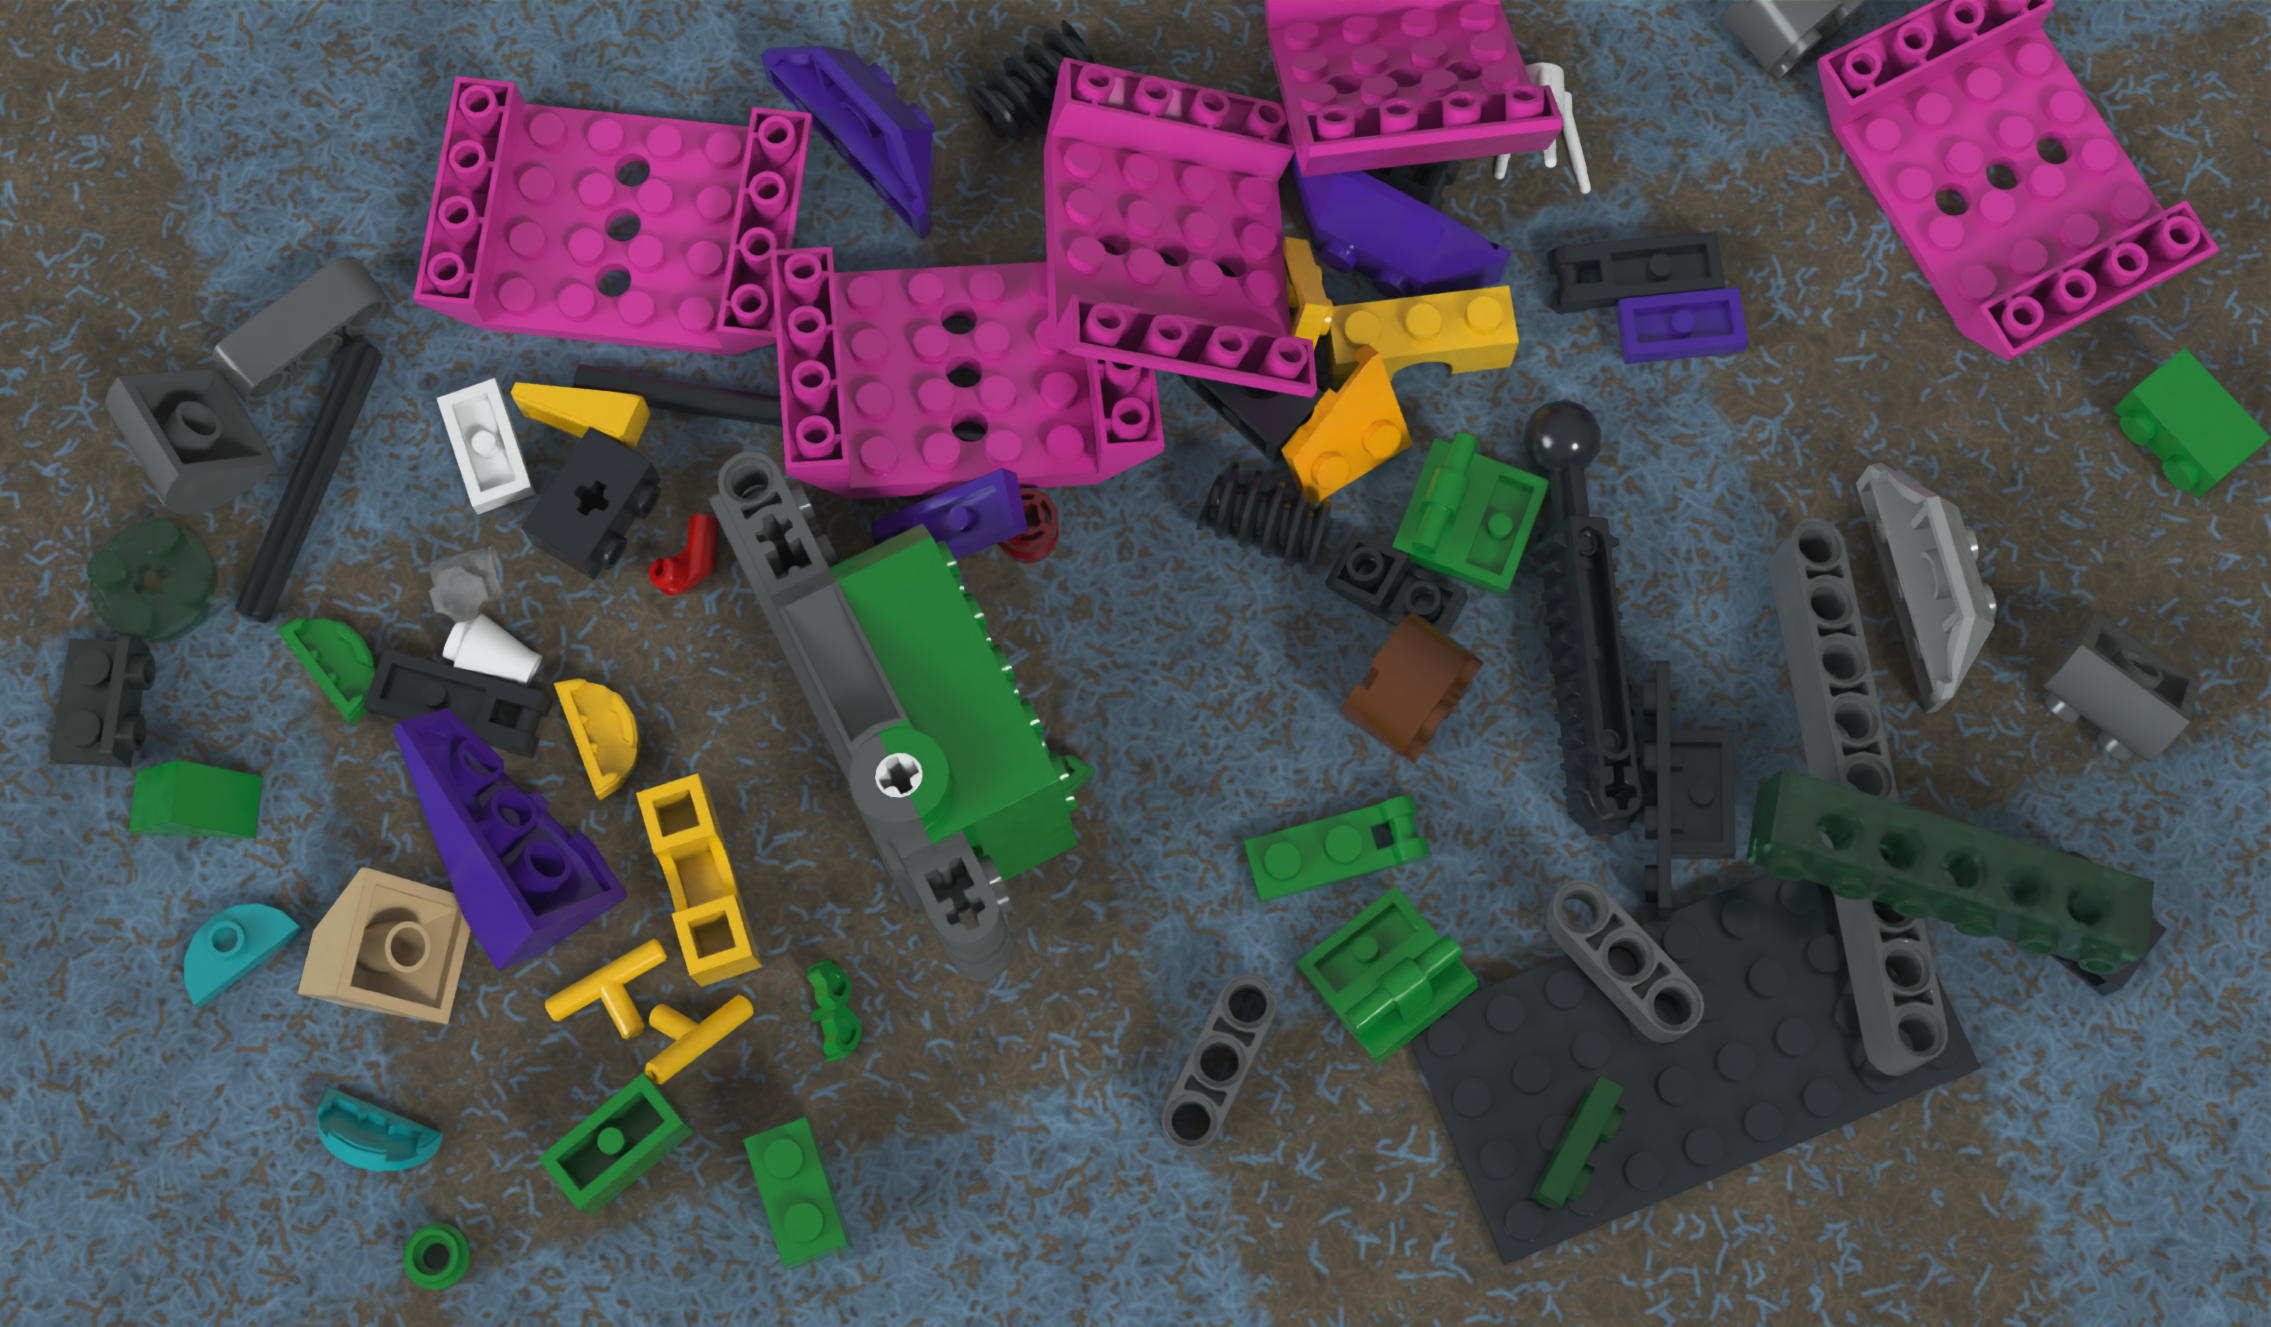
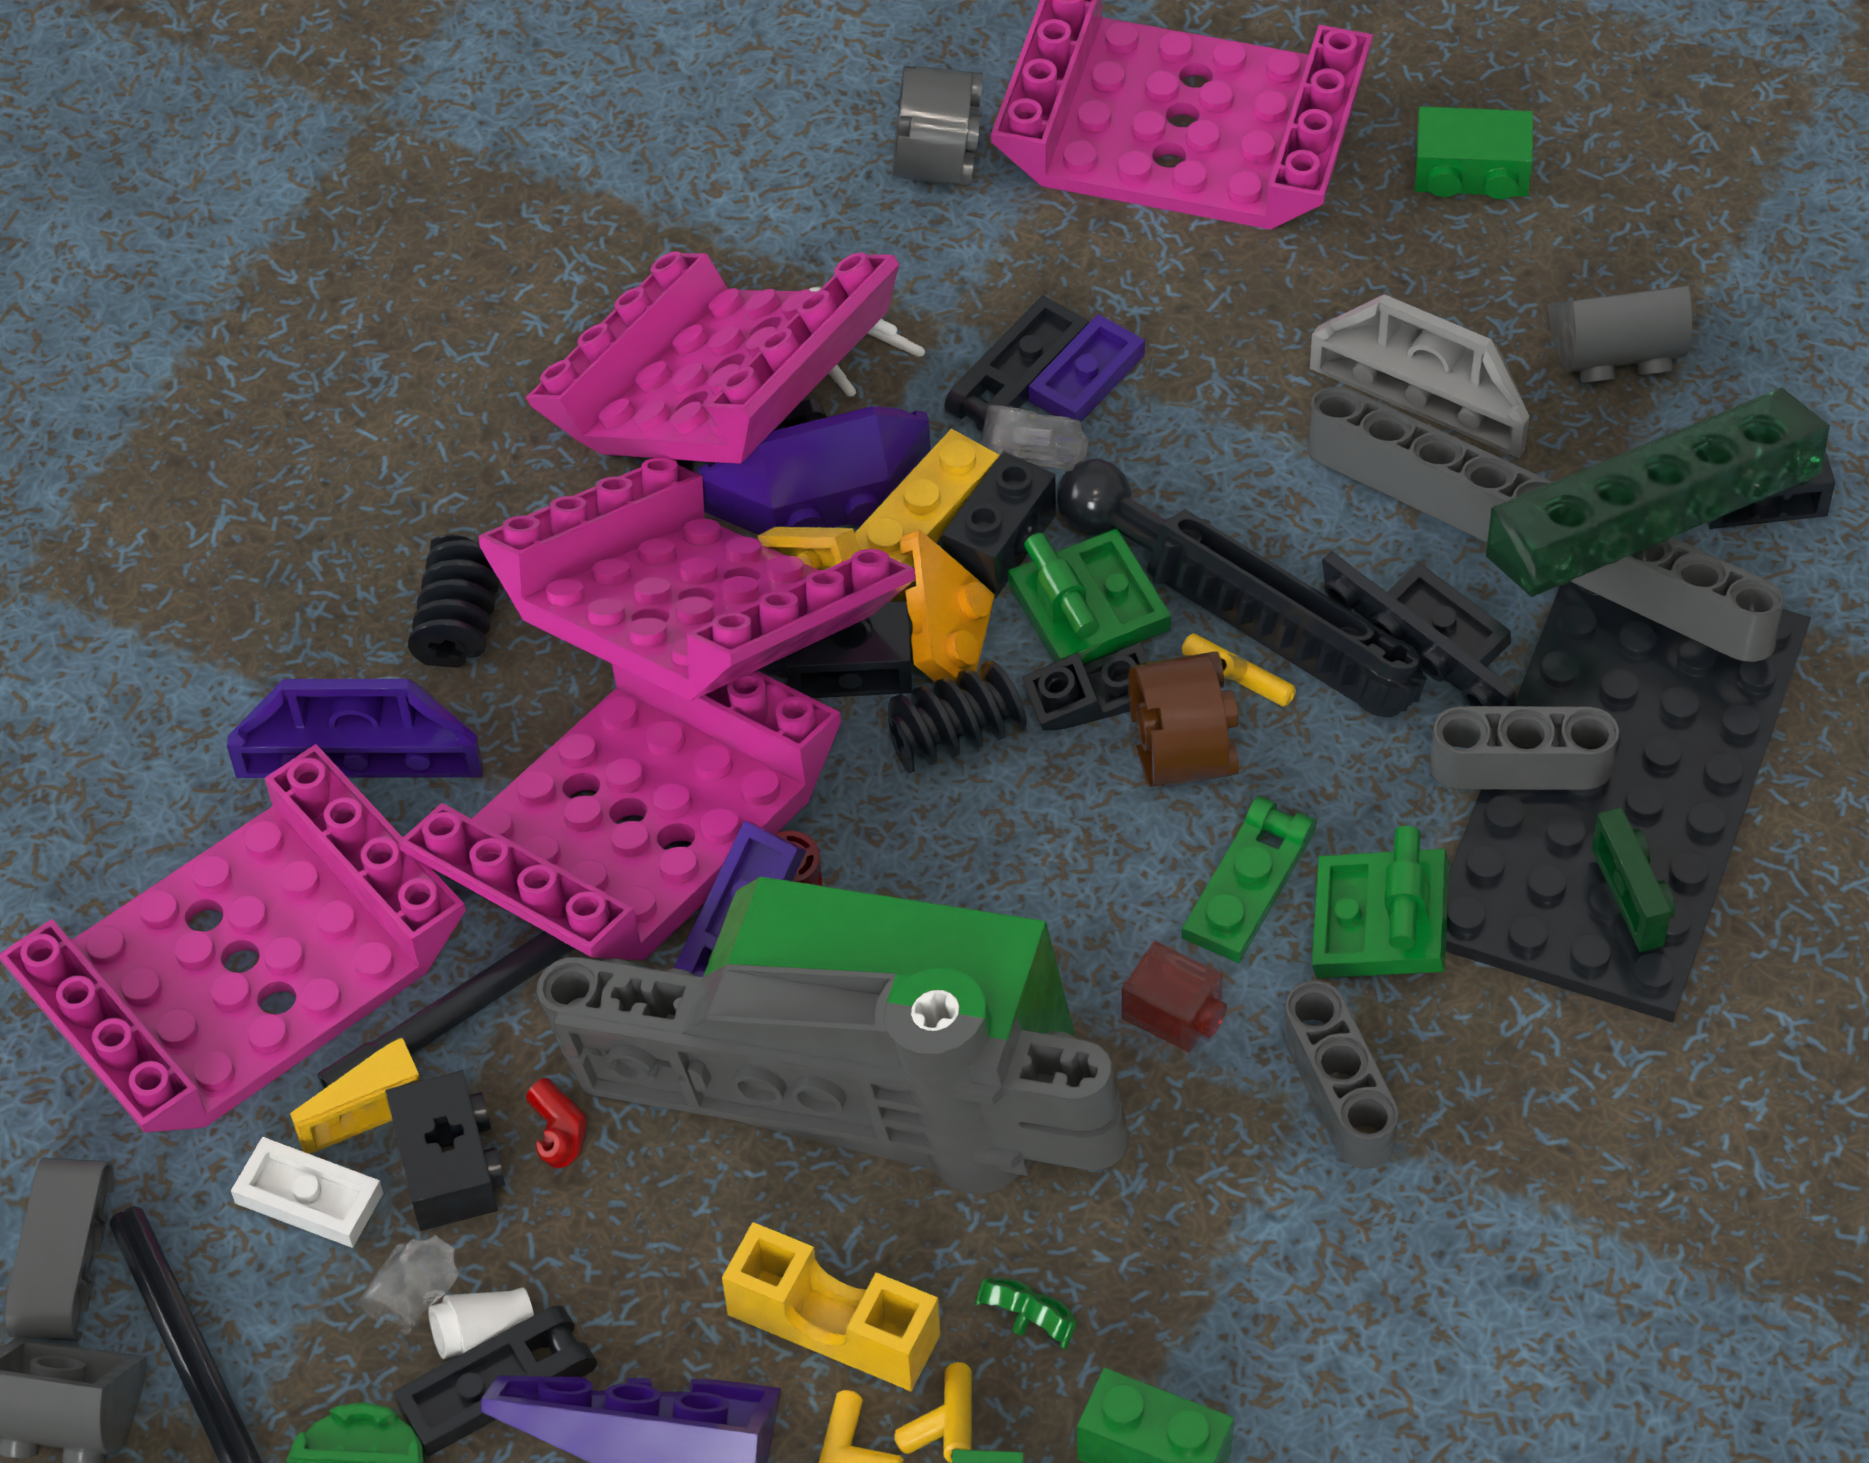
camera: 45 degrees left, 20 degrees down
(603, 732) = (629, 1292): yellow plate -> none
(1174, 889) = (1174, 997): none -> clear red brick
(1469, 393) = (999, 517): none -> black brick
(1513, 676) = (1243, 671): none -> yellow piece
(1559, 347) = (1036, 438): none -> clear piece

